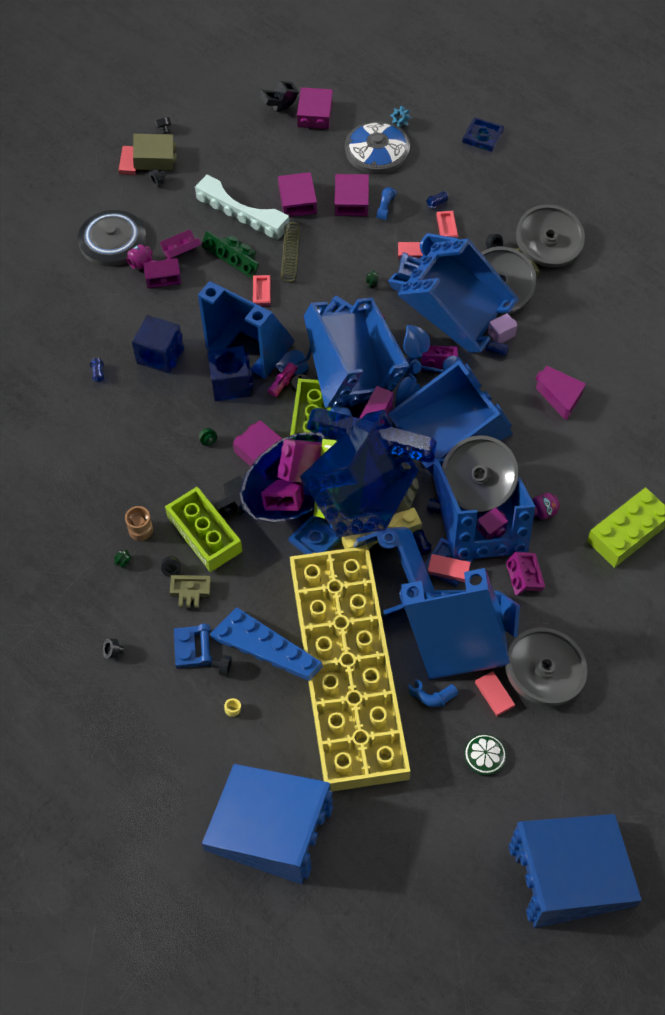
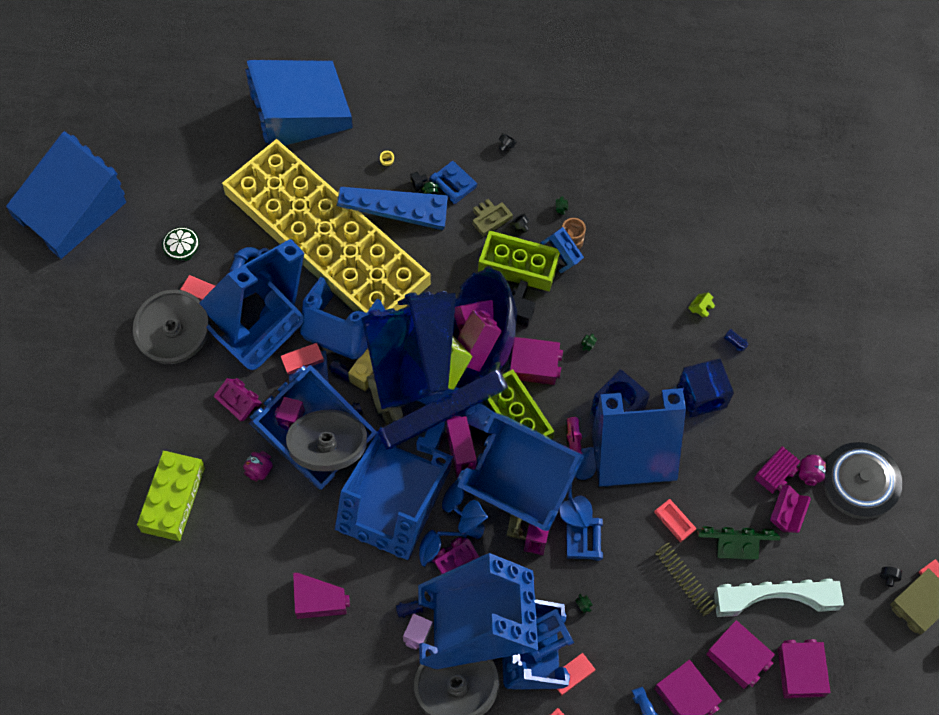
camera: 140 degrees right, 5 degrees up
(94, 409) = (700, 303): none -> lime tile
(158, 510) = (568, 250): none -> blue panel
(219, 649) = (430, 188): none -> dark green plate
(266, 165) = (803, 669): none -> magenta brick

